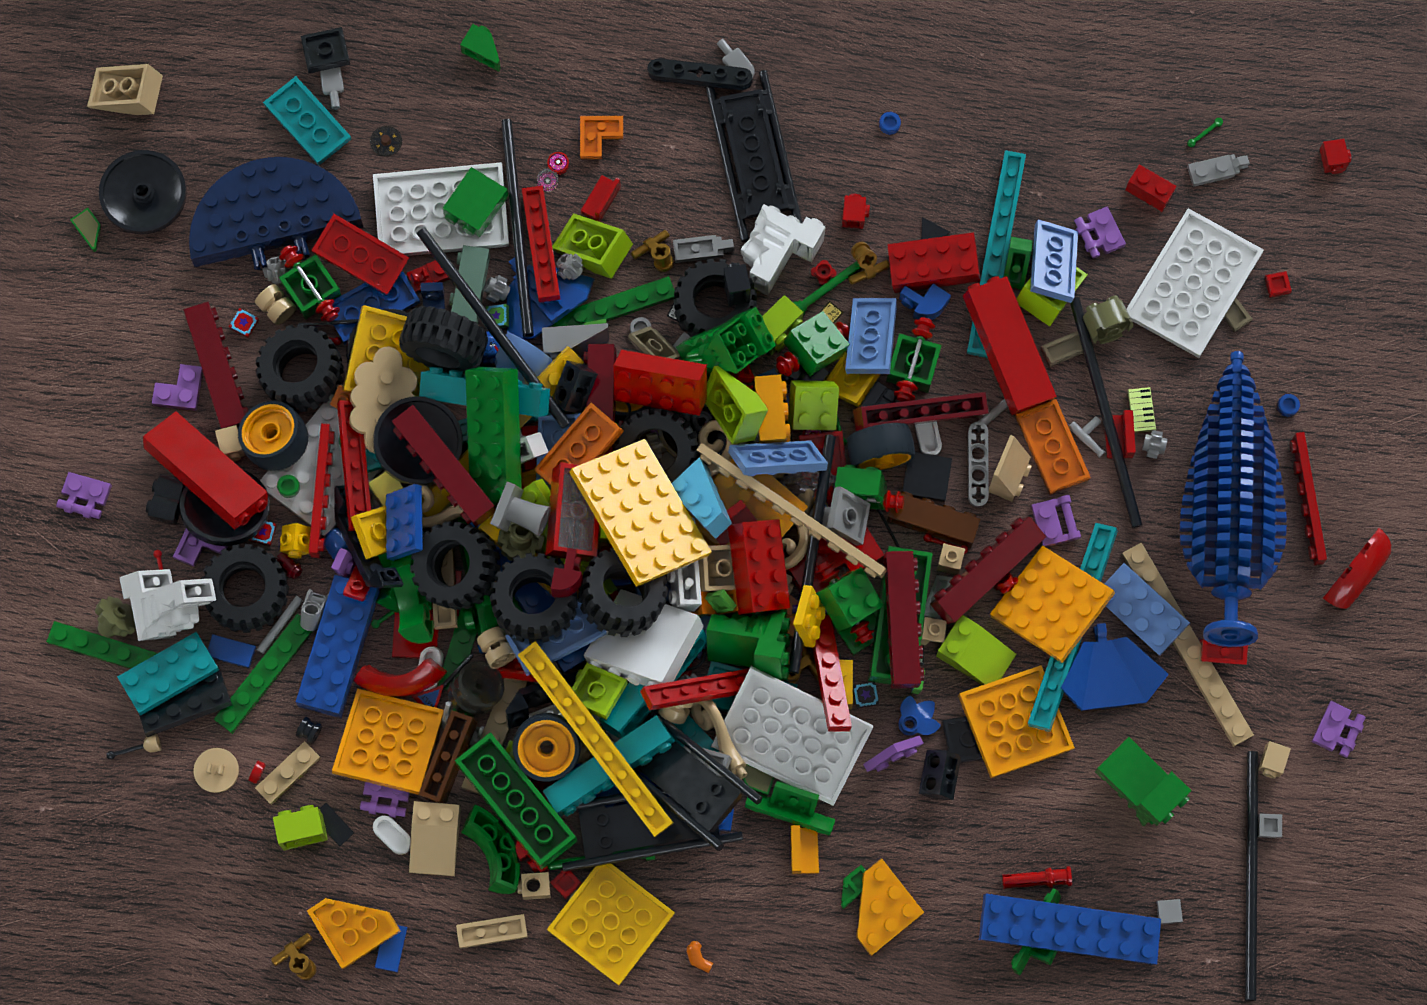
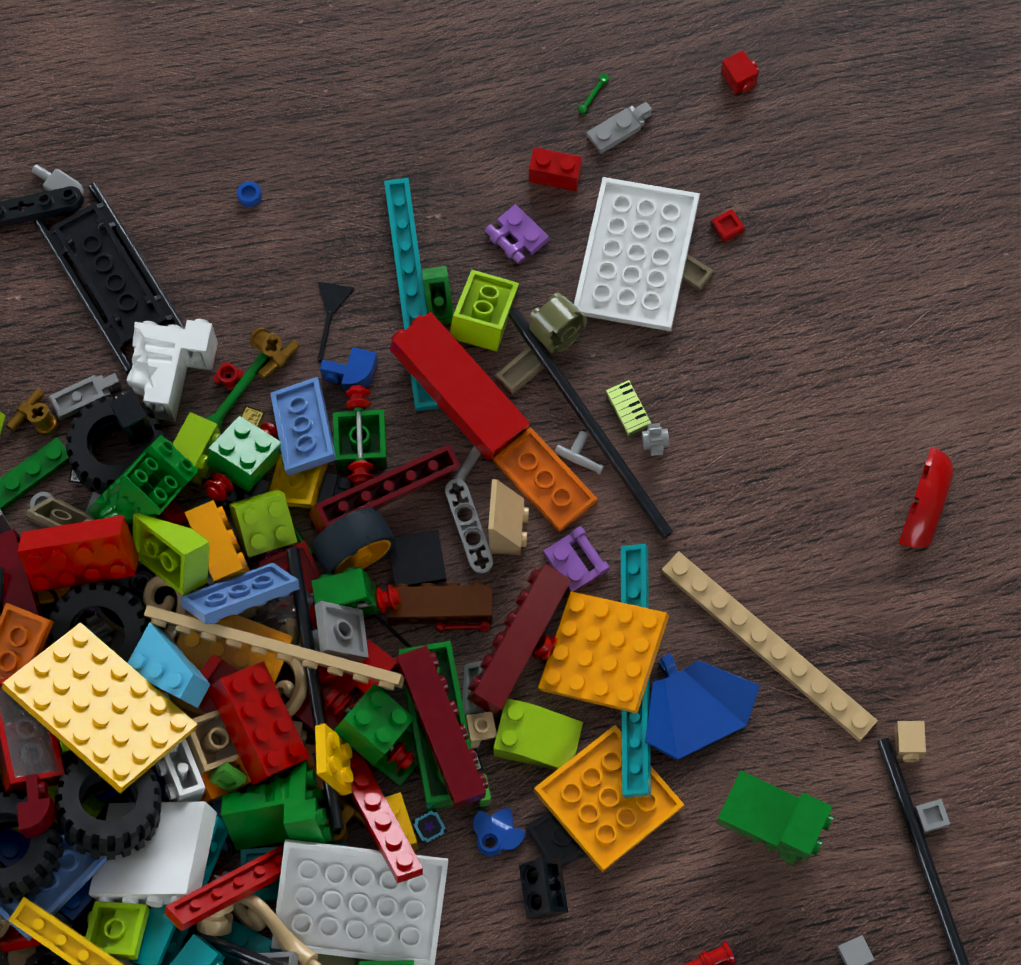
camera: 15 degrees left, 5 degrees down
(855, 211) = (241, 299): red brick -> none
(894, 752) = (483, 882): medium lavender plate -> none
(928, 438) = (404, 516): white tile -> none
(934, 261) = (345, 322): red brick -> none
(950, 559) = (473, 641): tan brick -> none
(1054, 261) = (477, 279): plate -> none
(1125, 430) = (618, 435): red panel -> none
(1144, 610) = (708, 624): medium blue plate -> none
(1223, 654) = (812, 639): red panel -> none
(1235, 502) = (765, 473): blue plant -> none
(1288, 405) = (785, 349): blue tile -> none
(1309, 507) = (847, 449): red plate -> none
(1331, 727) = (959, 682): medium lavender plate -> none

